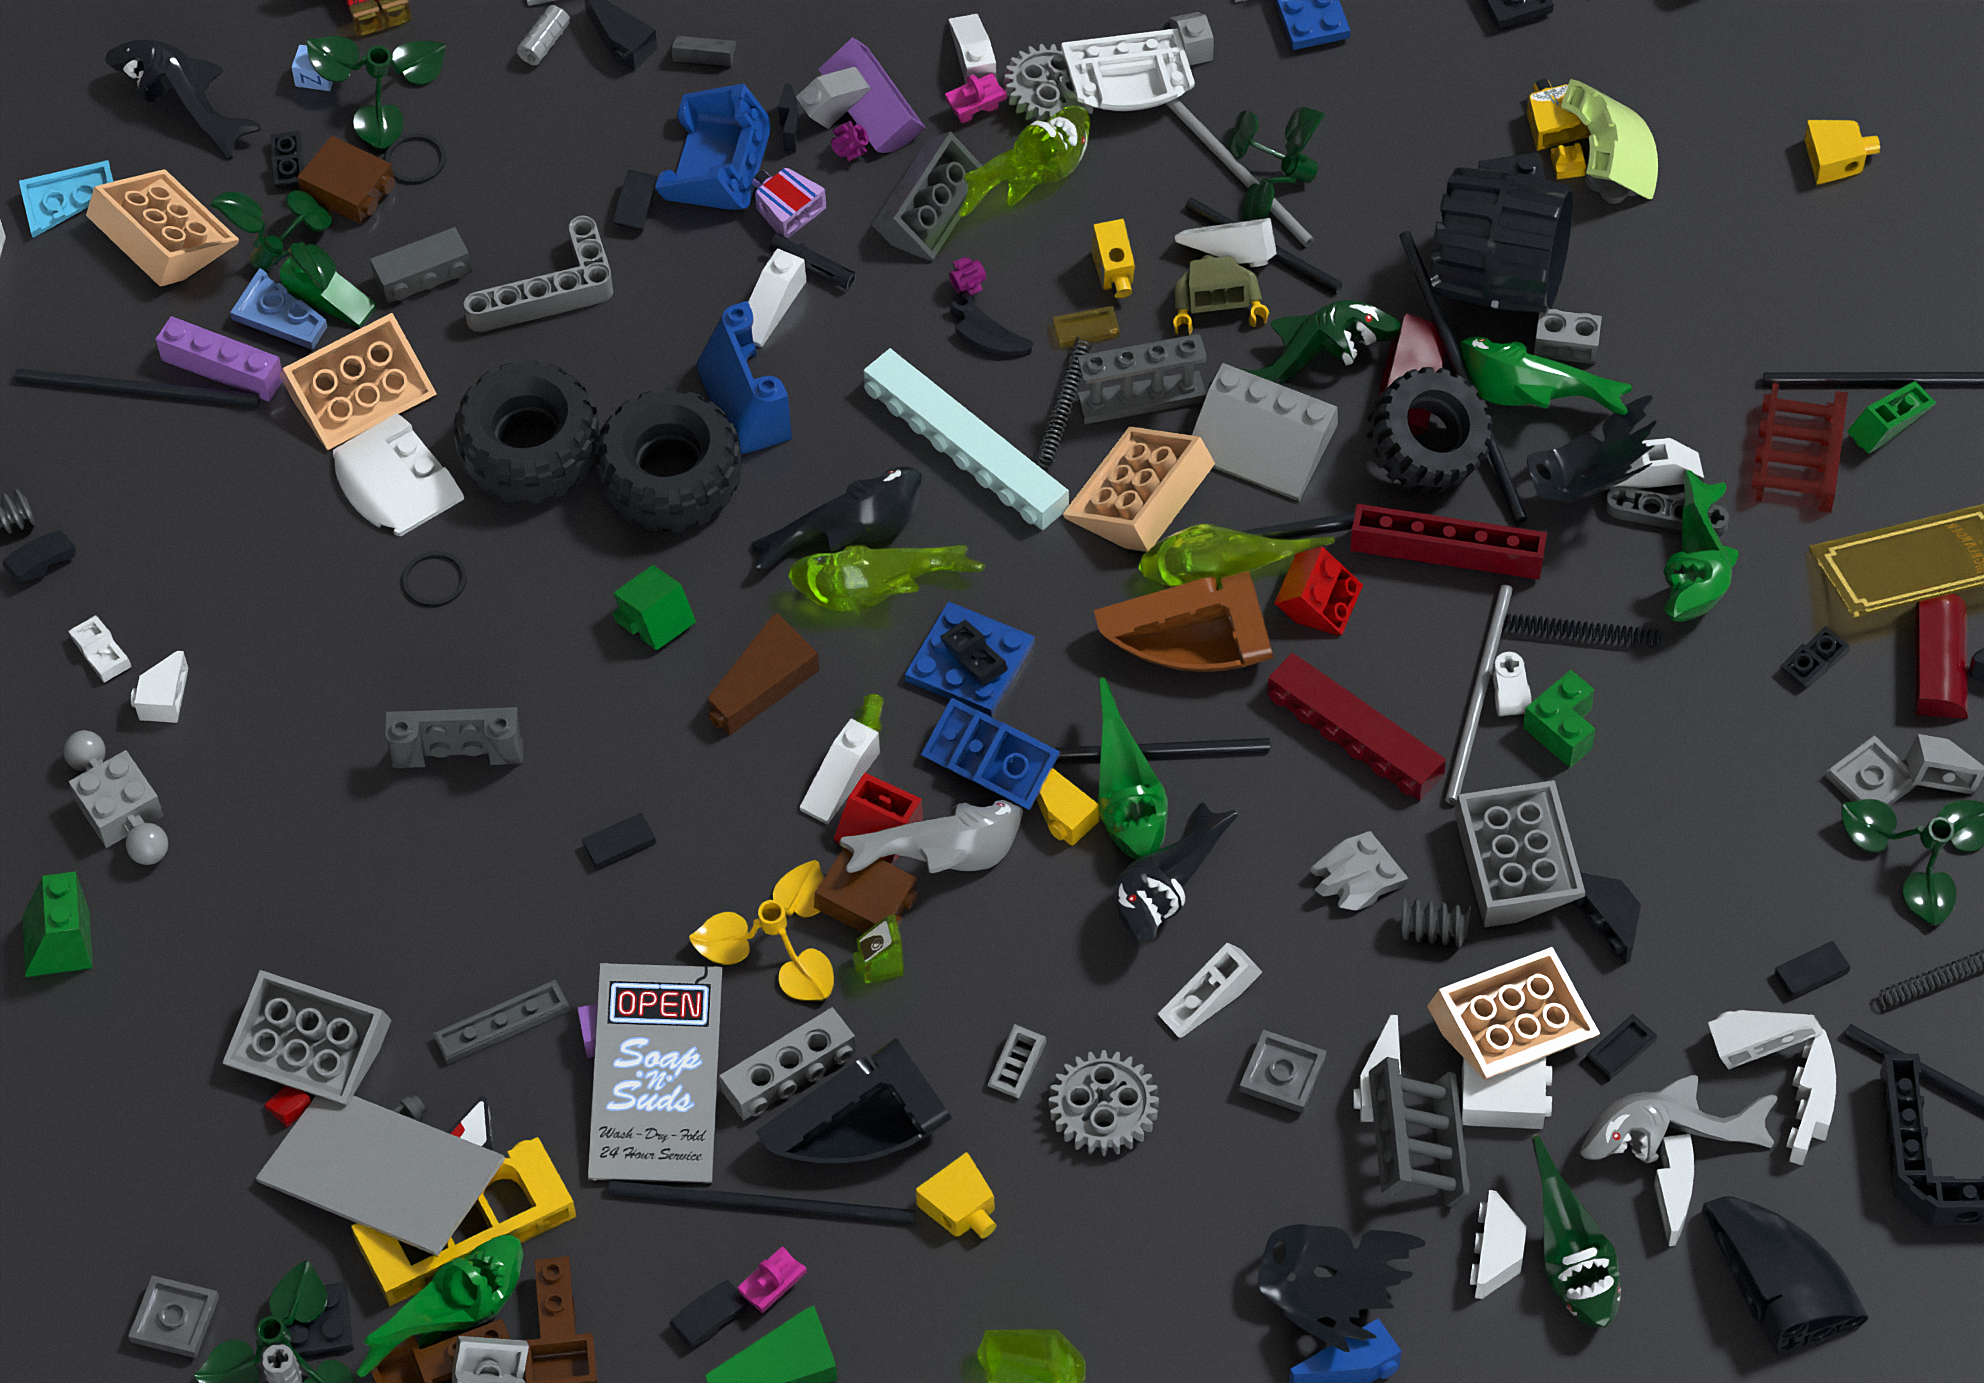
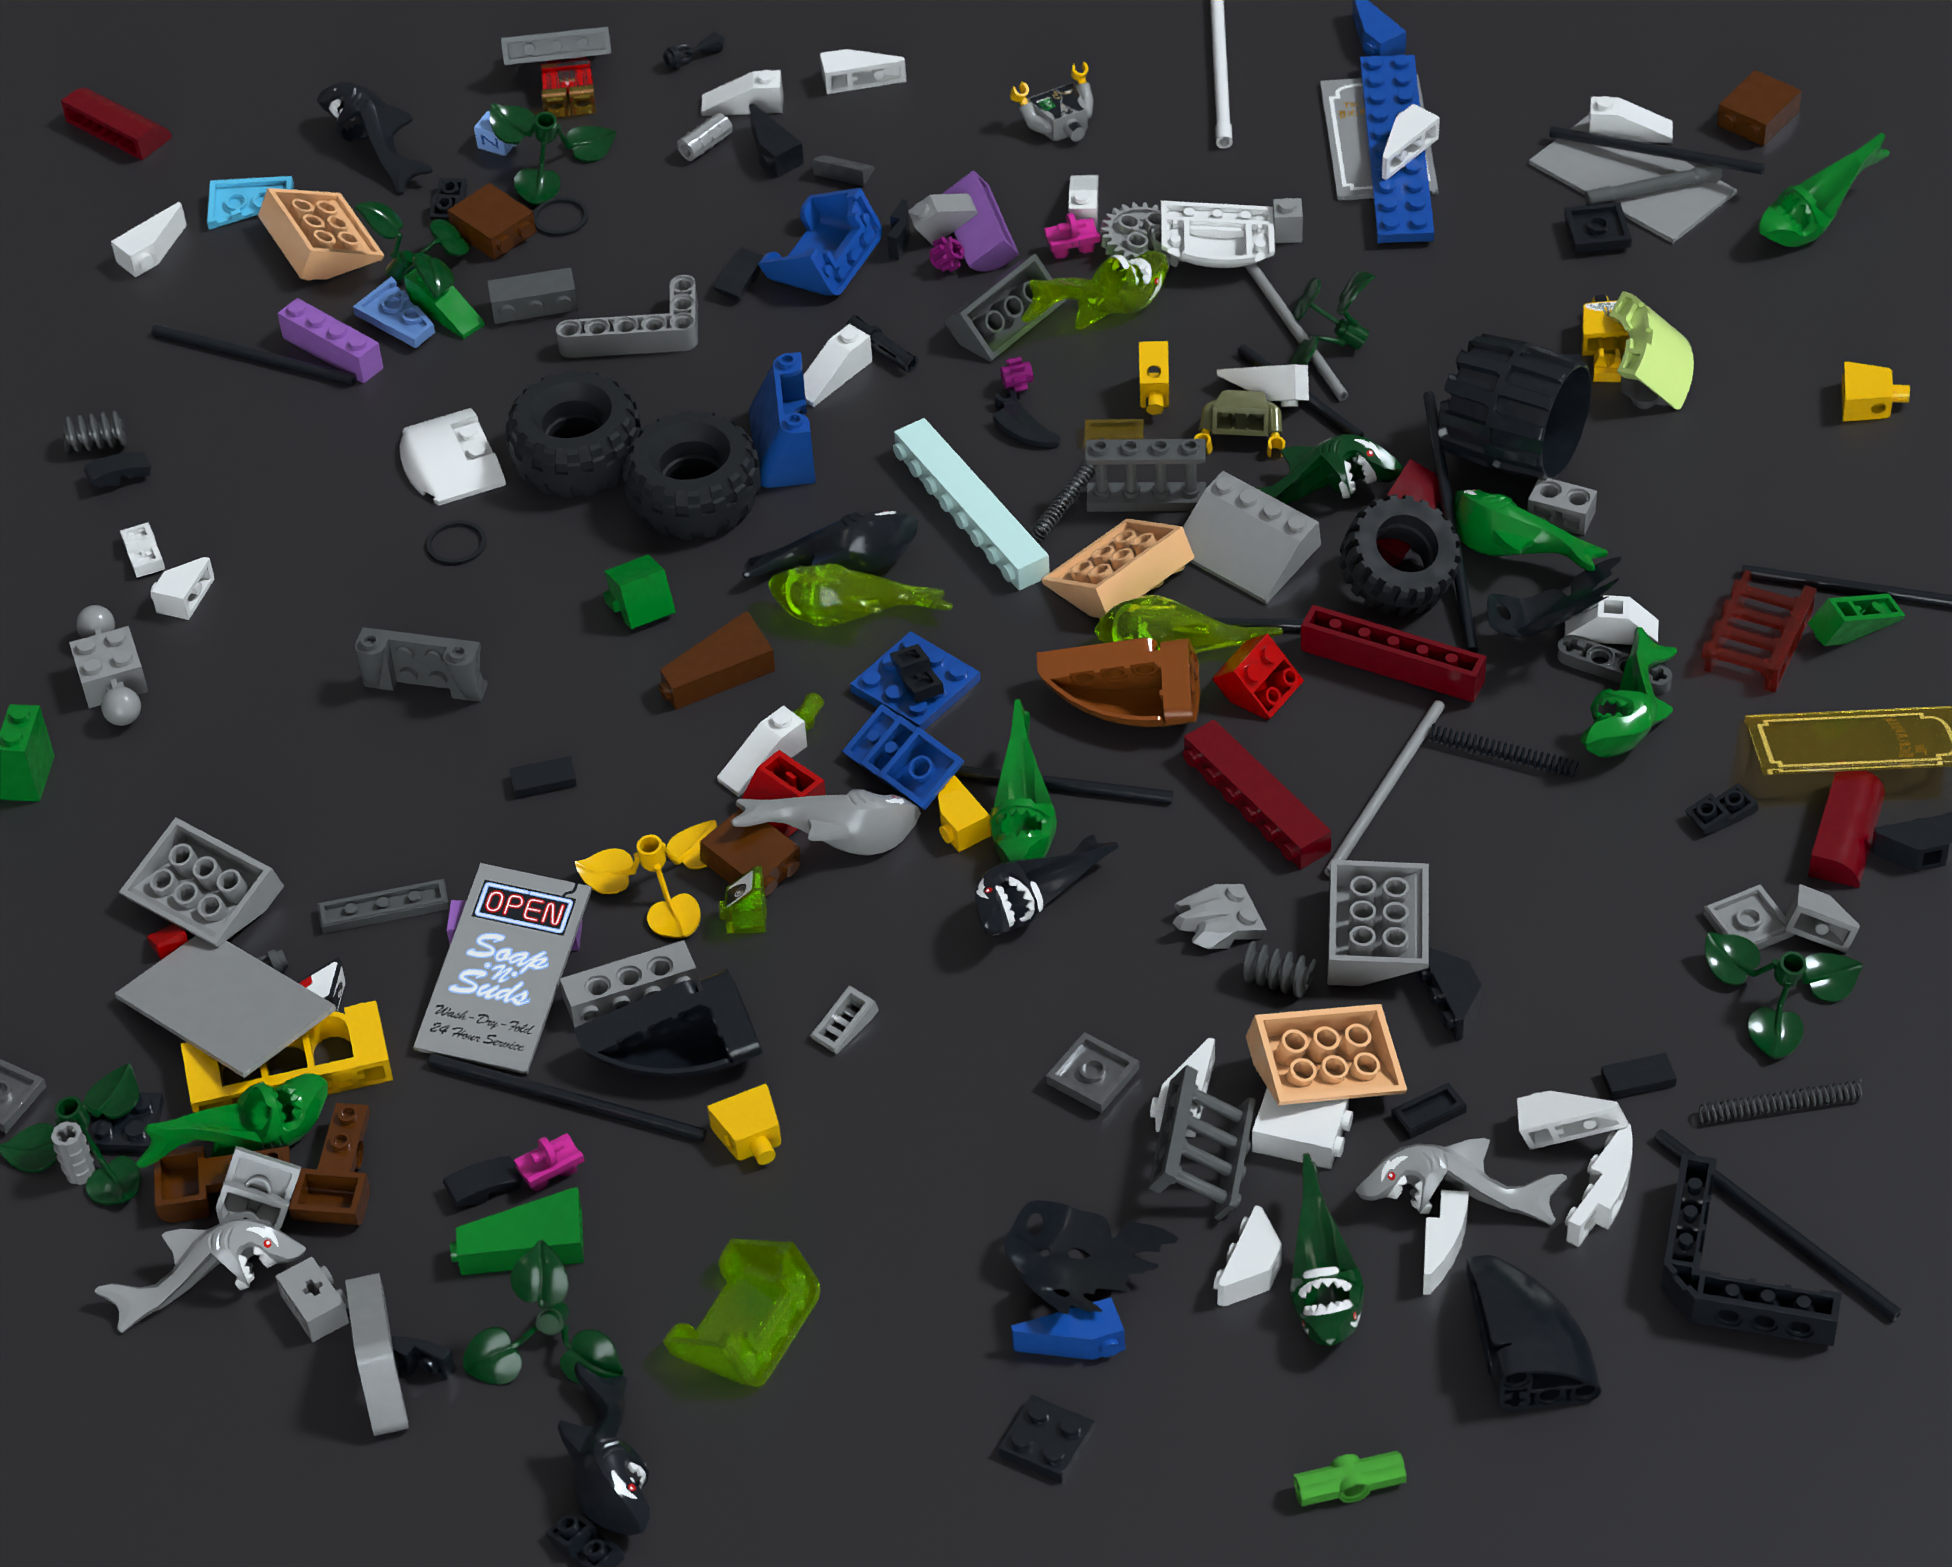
camera: 15 degrees right, 10 degrees down
(357, 382) = (443, 374): light nougat slope -> none
(788, 200) = (876, 293): lavender torso -> none
(1125, 1120) = (912, 1068): light grey gear -> none
(1210, 990) = (1049, 988): white slope -> none
(1511, 688) = (1416, 781): white piece -> none
(1558, 718) = (1455, 818): green brick -> none

